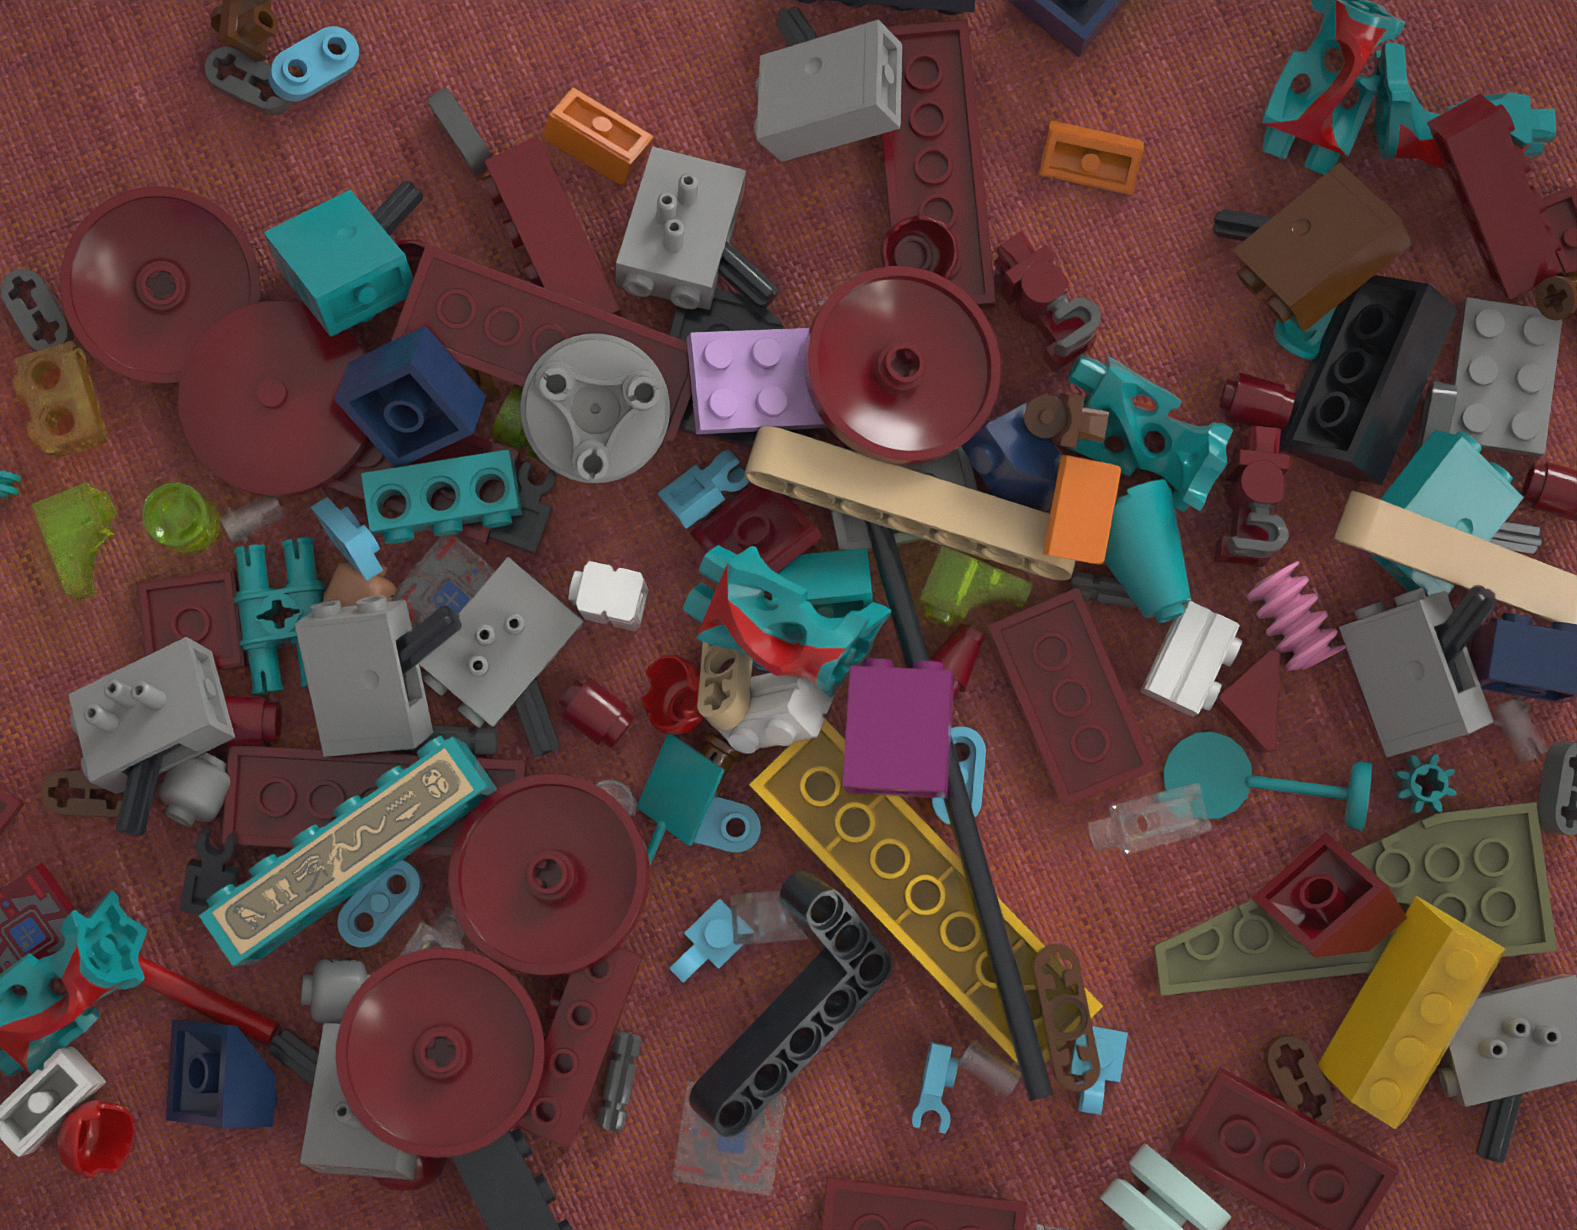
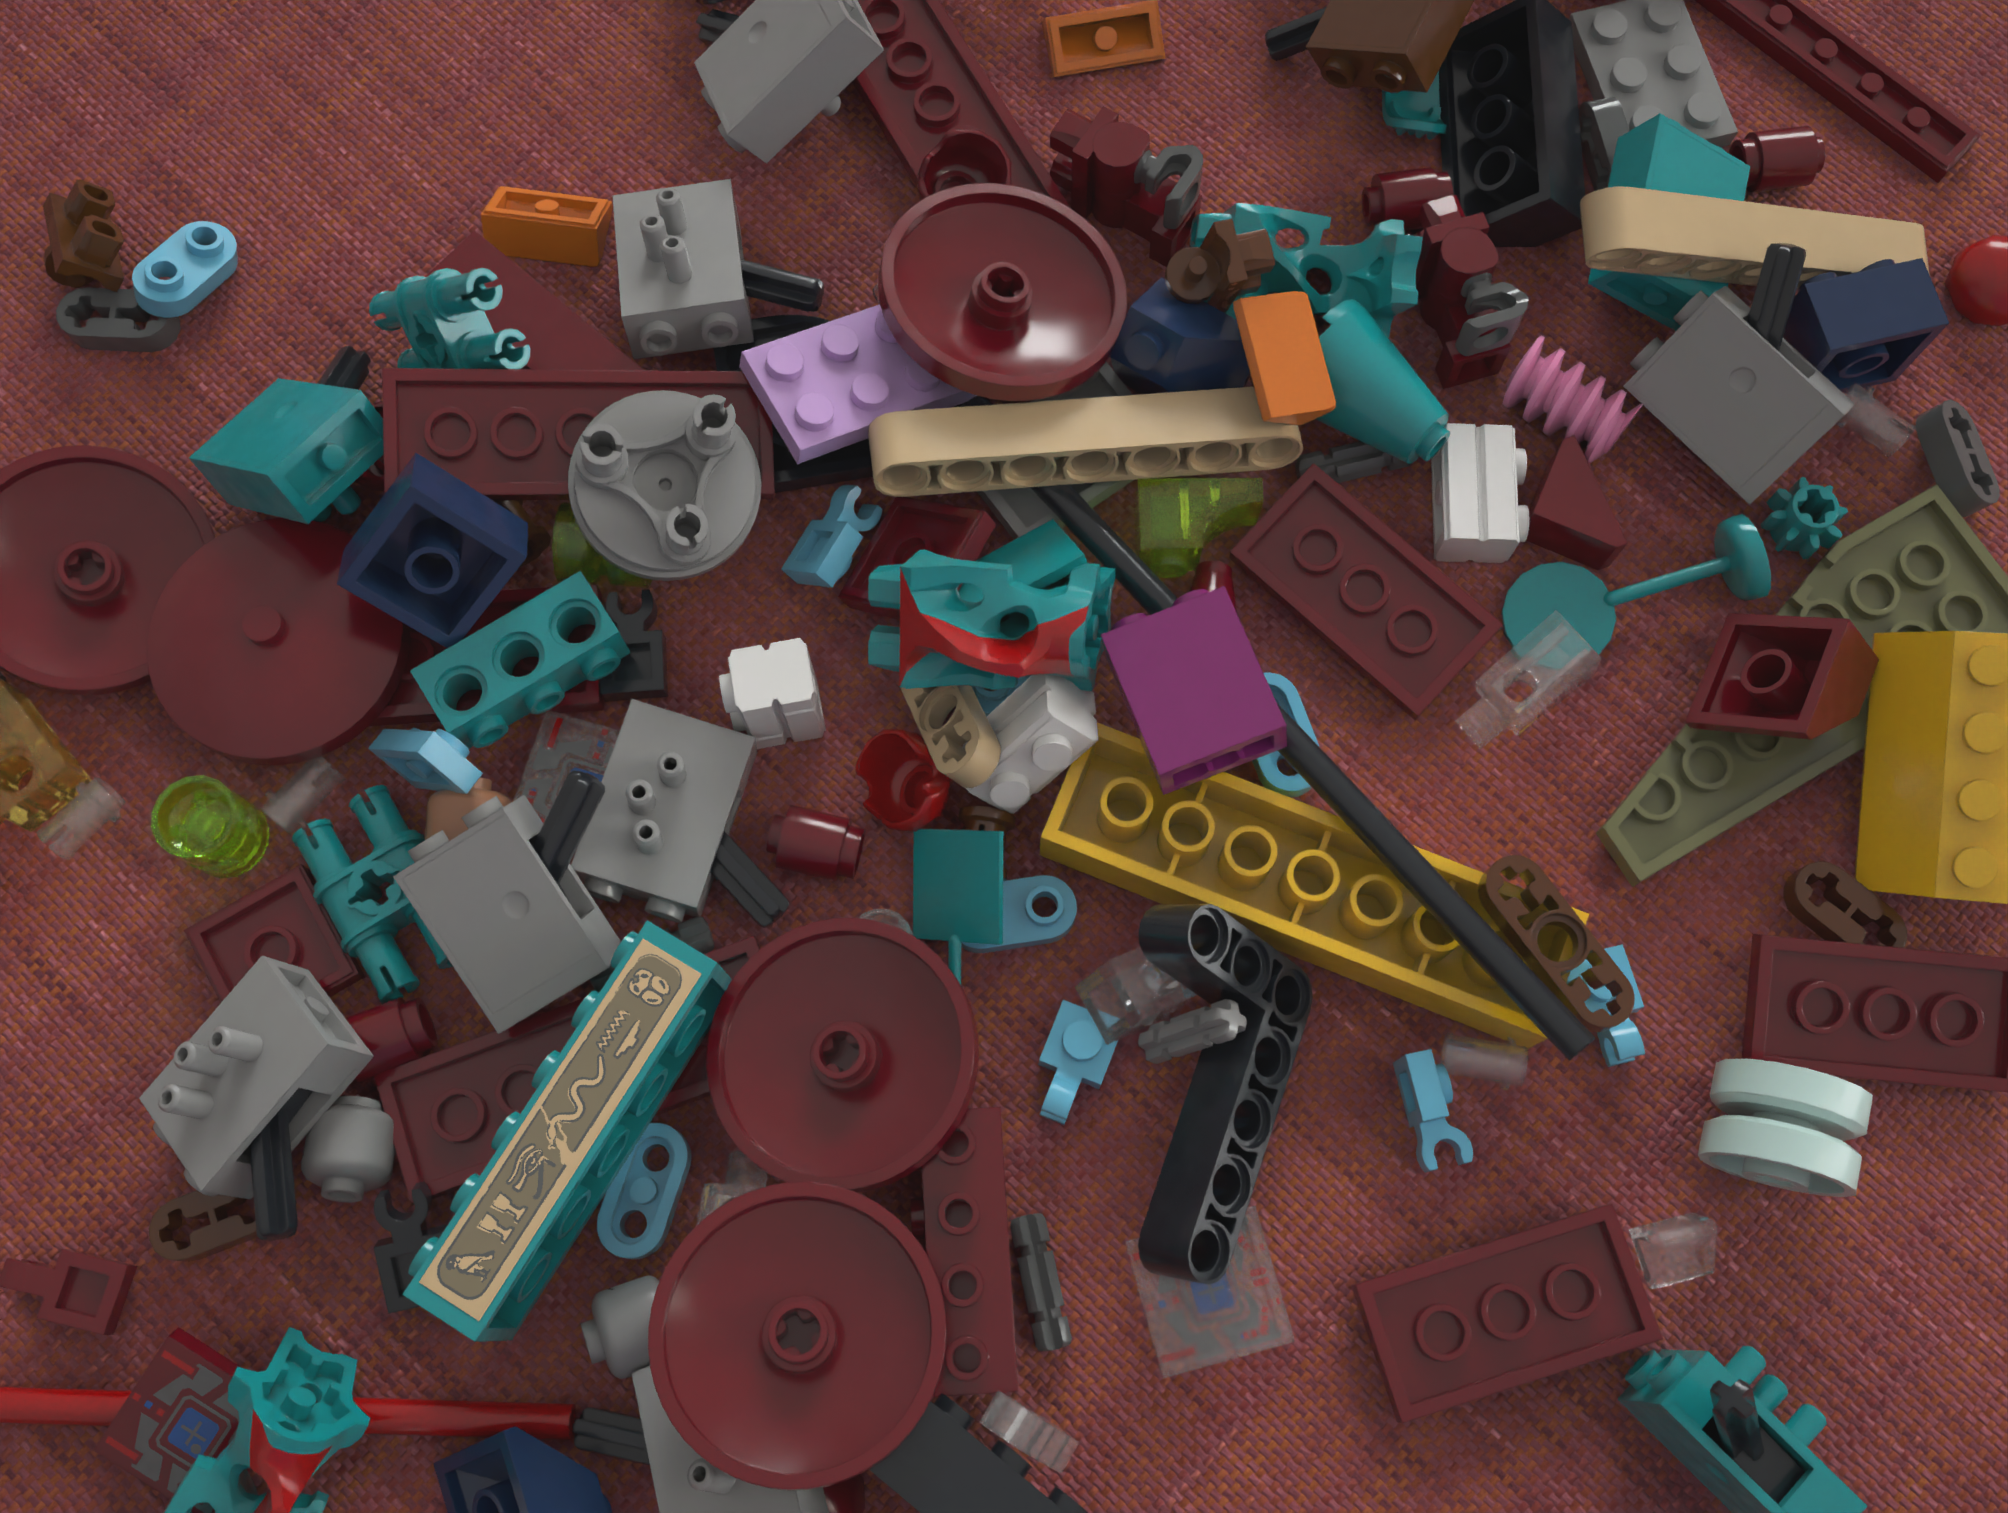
camera: 25 degrees left, 10 degrees down
(74, 529) = (84, 900): clear neon green arch -> none
(96, 466) = (82, 817): none -> clear pin
(459, 129) = (372, 263): dark grey beam -> none
(487, 216) = (448, 322): none -> teal pin
(566, 1175) = (1029, 1431): none -> clear beam
(794, 962) = (1192, 1031): none -> light grey axle

